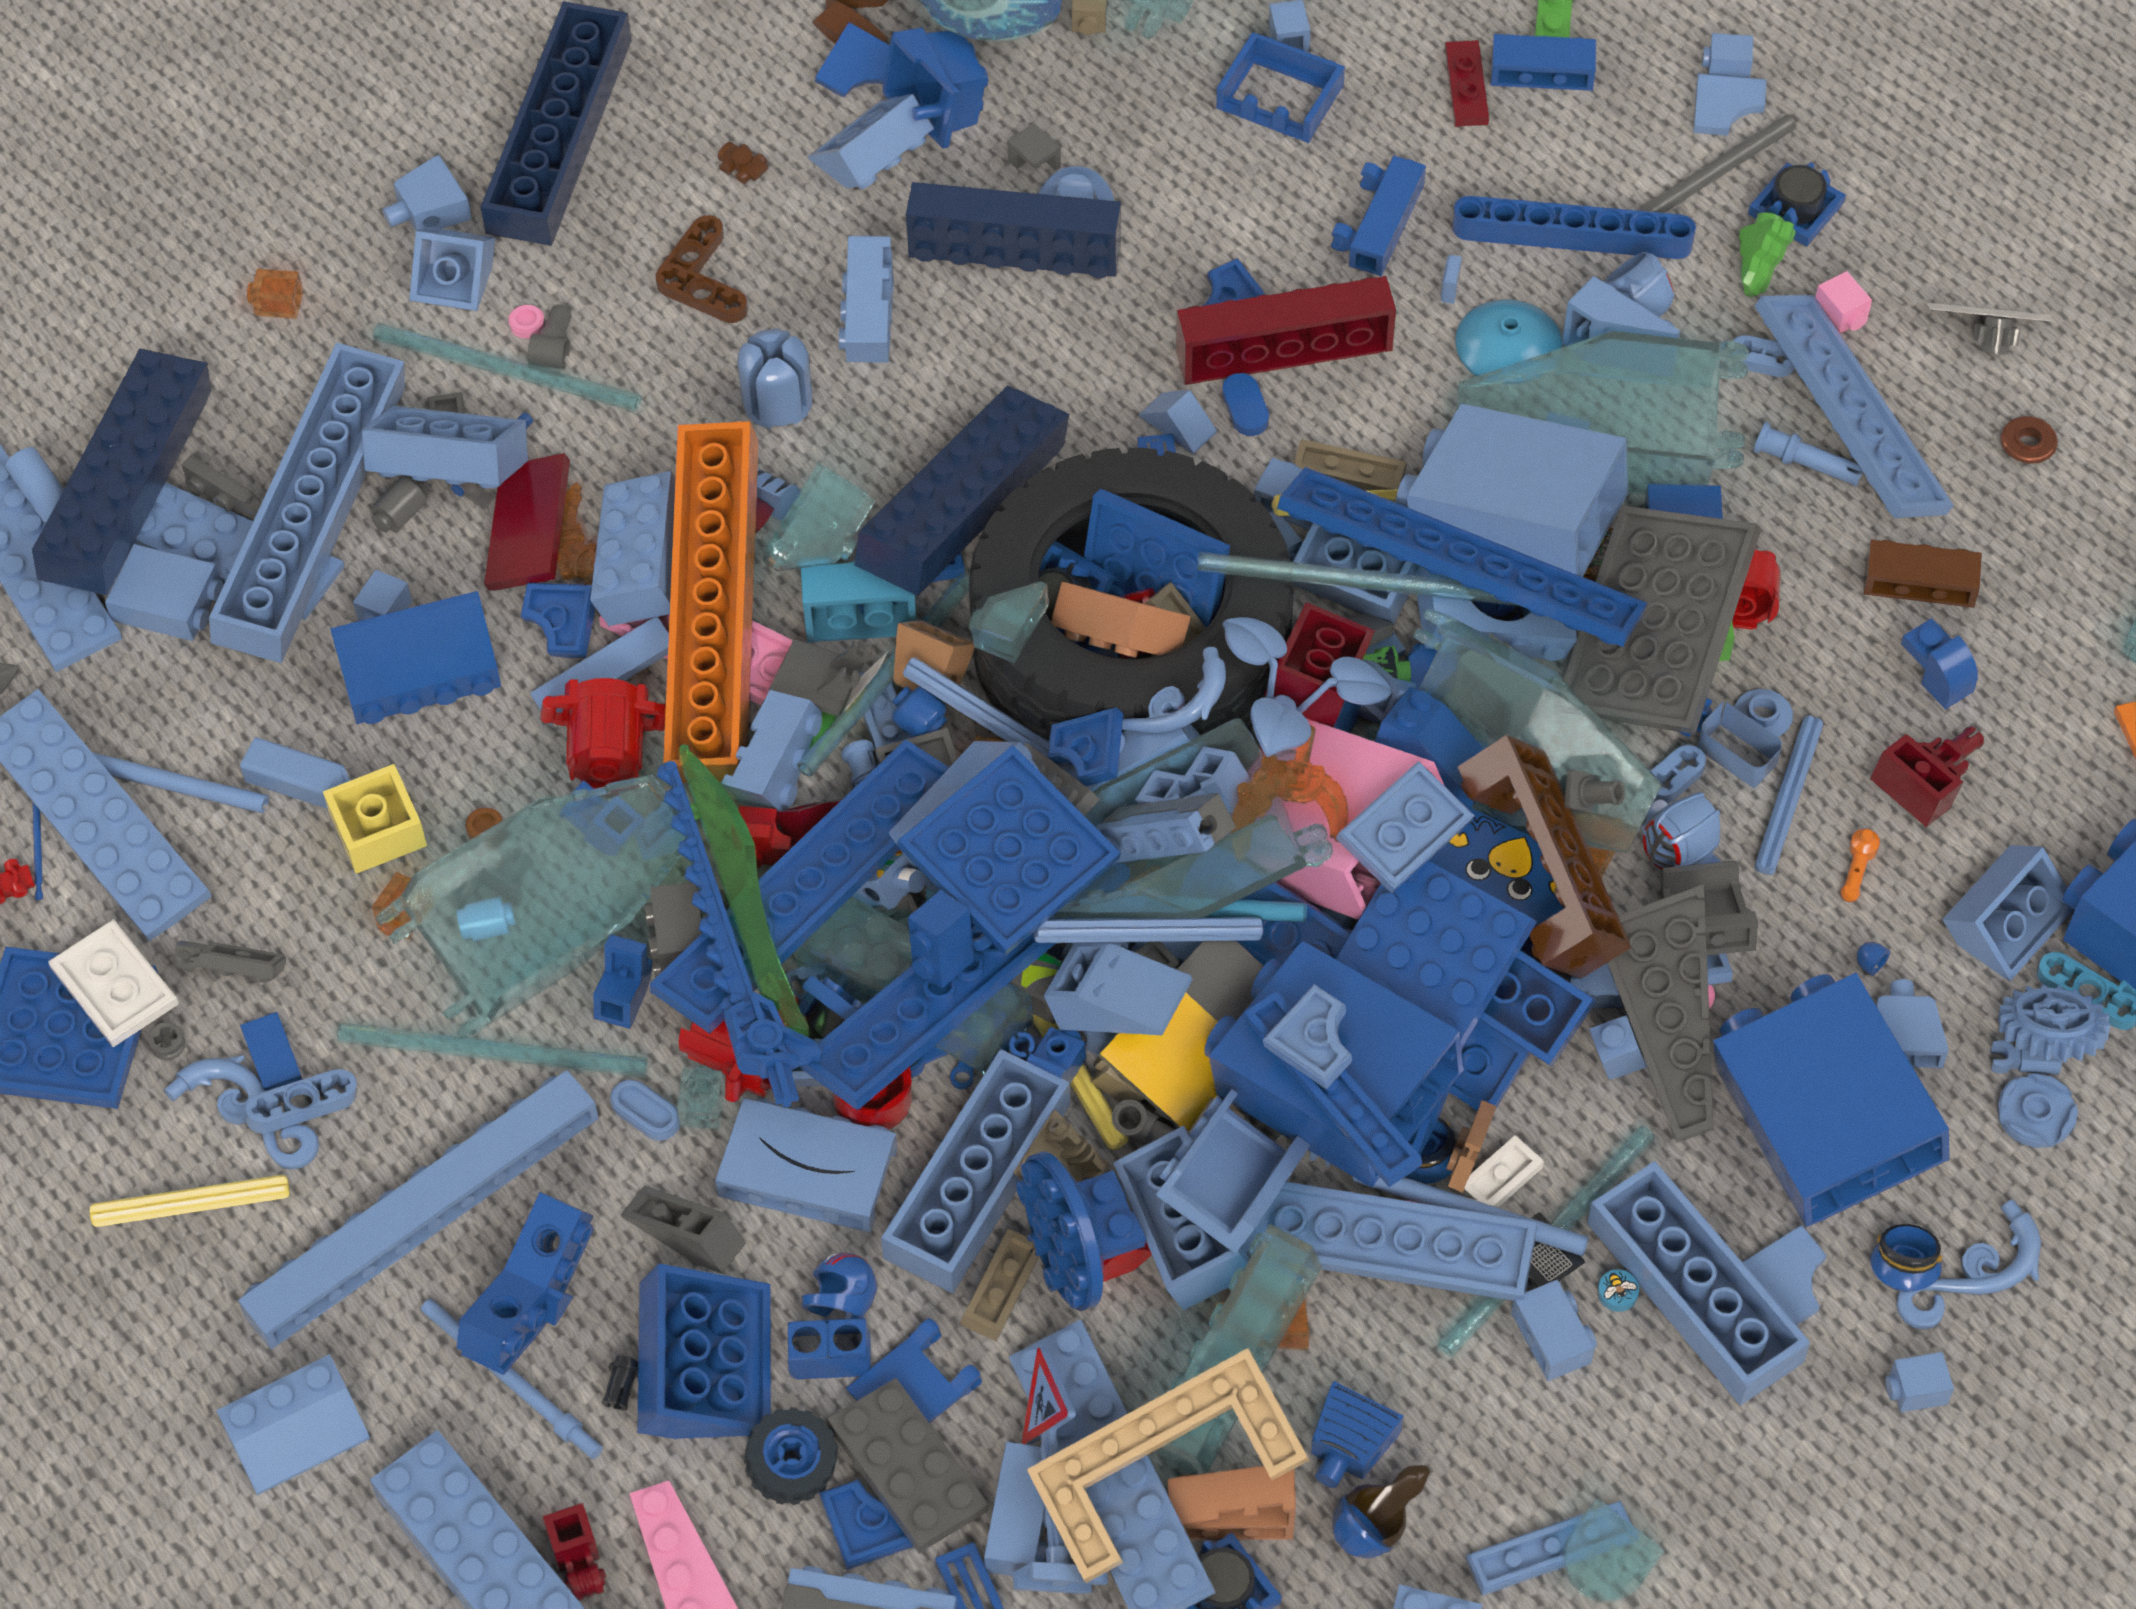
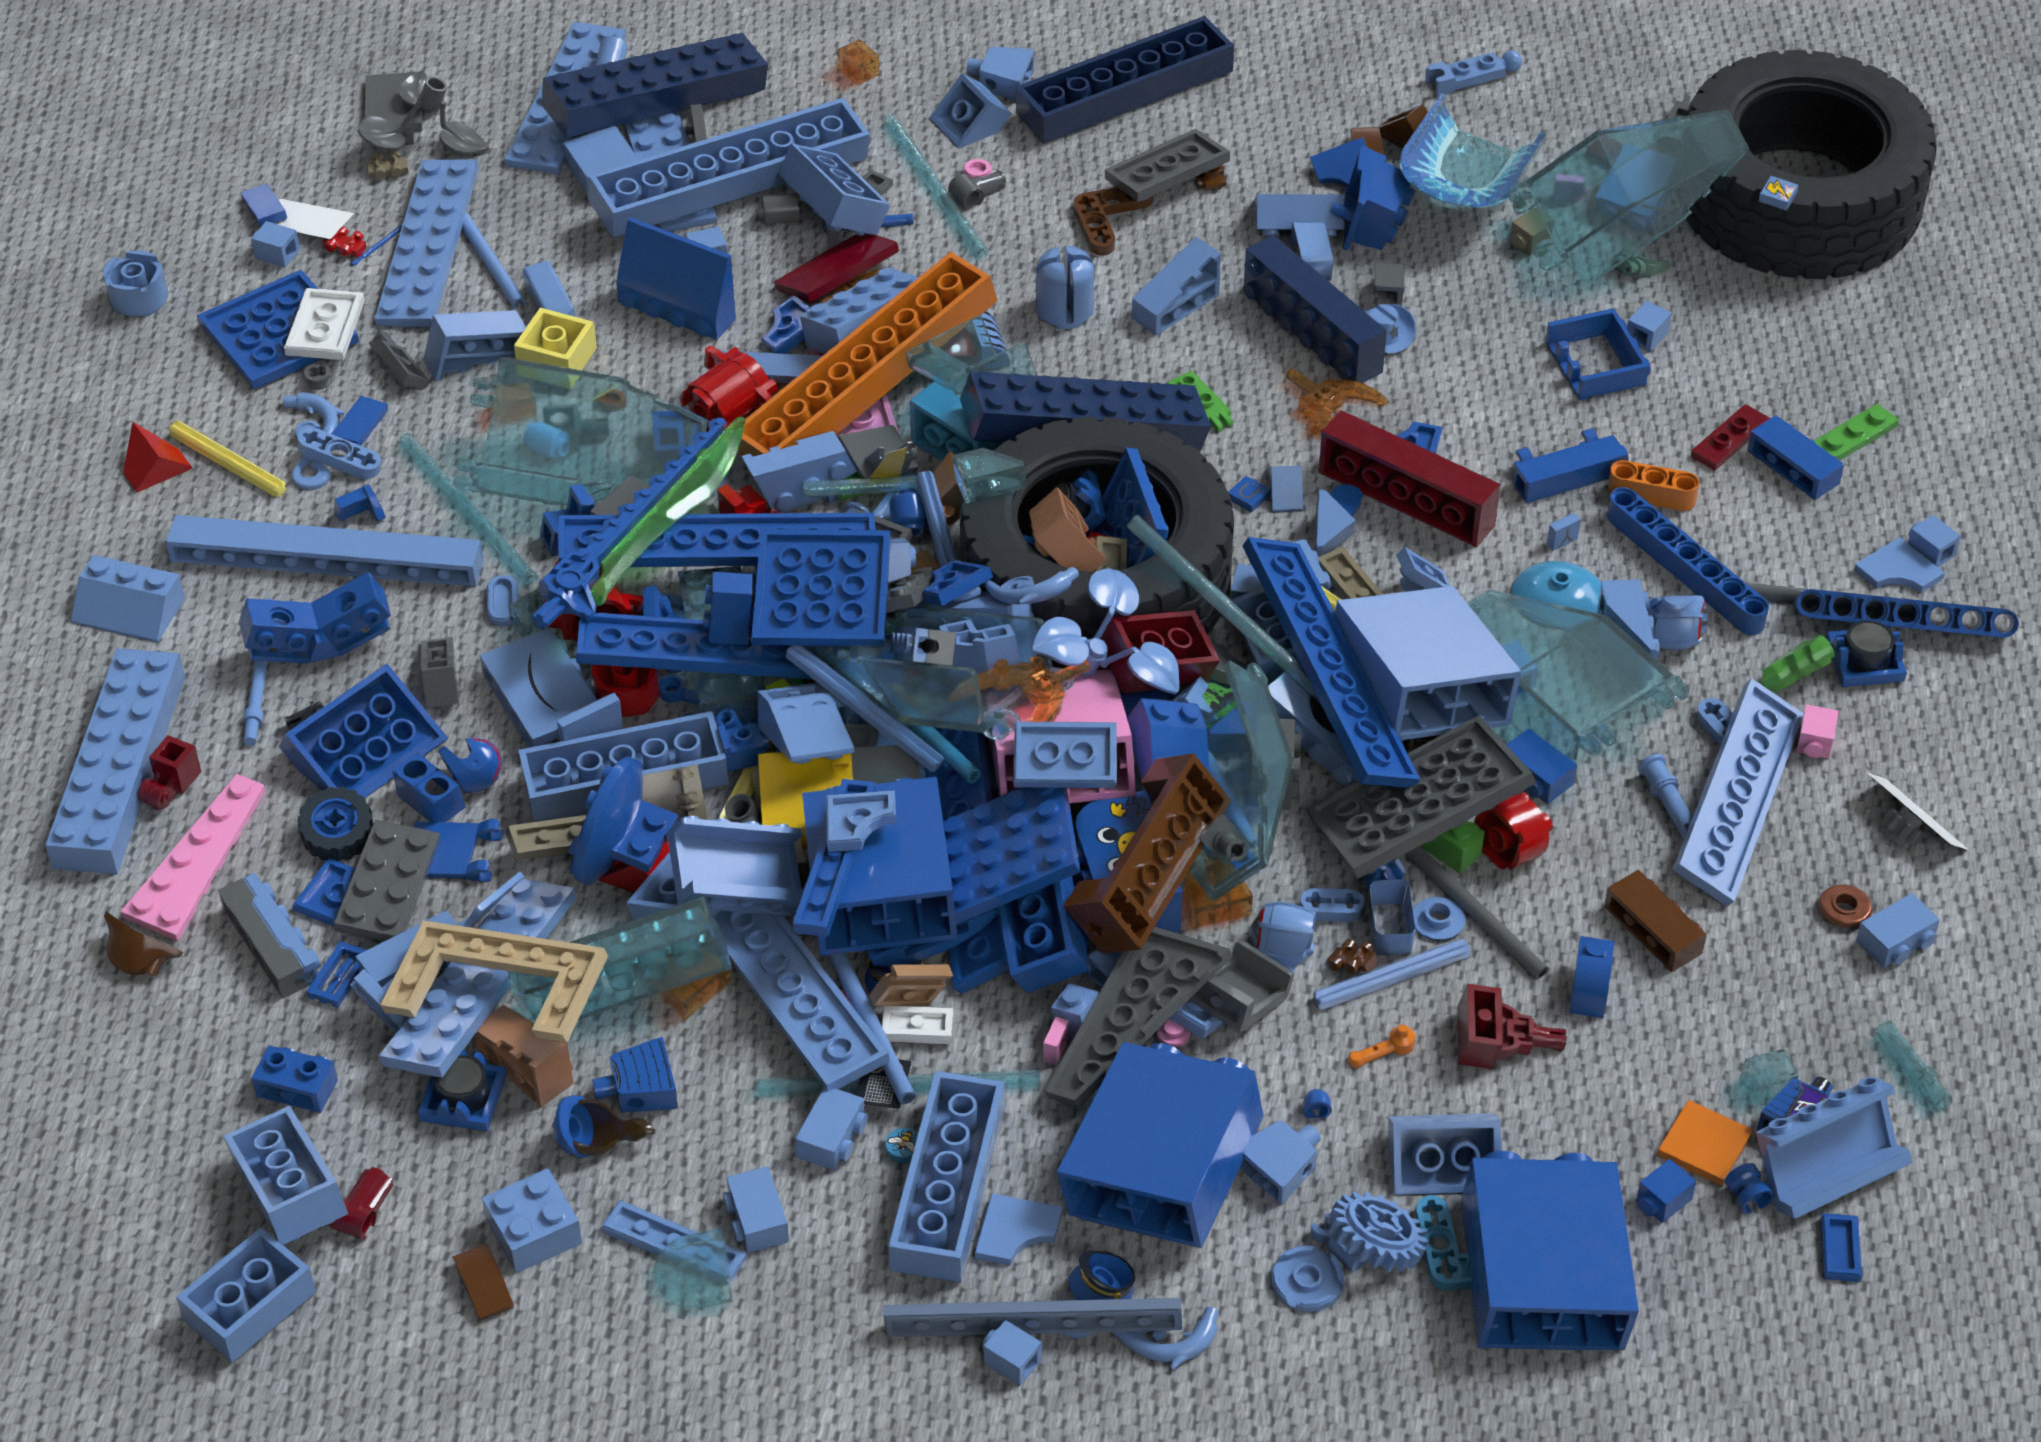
camera: 45 degrees right, 10 degrees down
(118, 1267) = (151, 459): none -> red slope
(282, 877) = (469, 339): none -> medium blue wedge
(393, 1122) = (357, 502): none -> blue tile
(708, 182) = (1167, 165): none -> dark grey plate
(910, 1156) = (592, 719): none -> medium blue tile
(932, 162) = (1313, 246): none -> medium blue piece
(982, 389) = (1214, 407): none -> bright green hinge
(1113, 310) = (1329, 398): none -> clear orange bar
(1269, 426) = (1332, 524): none -> medium blue slope
(1393, 417) = (1419, 572): none -> medium blue slope
(1468, 176) = (1656, 484): none -> orange beam
(1586, 1456) = (757, 1210): none -> medium blue brick
(1626, 1088) = (1056, 1041): none -> bright pink tile
(1751, 809) = (1351, 959): none -> reddish brown piece
(1772, 142) = (1921, 613): none -> blue beam
(1803, 684) = (1478, 912): none -> dark grey piece
(1904, 1339) = (1034, 1317): none -> sand blue tile
(2093, 429) = (1898, 931): none -> medium blue brick

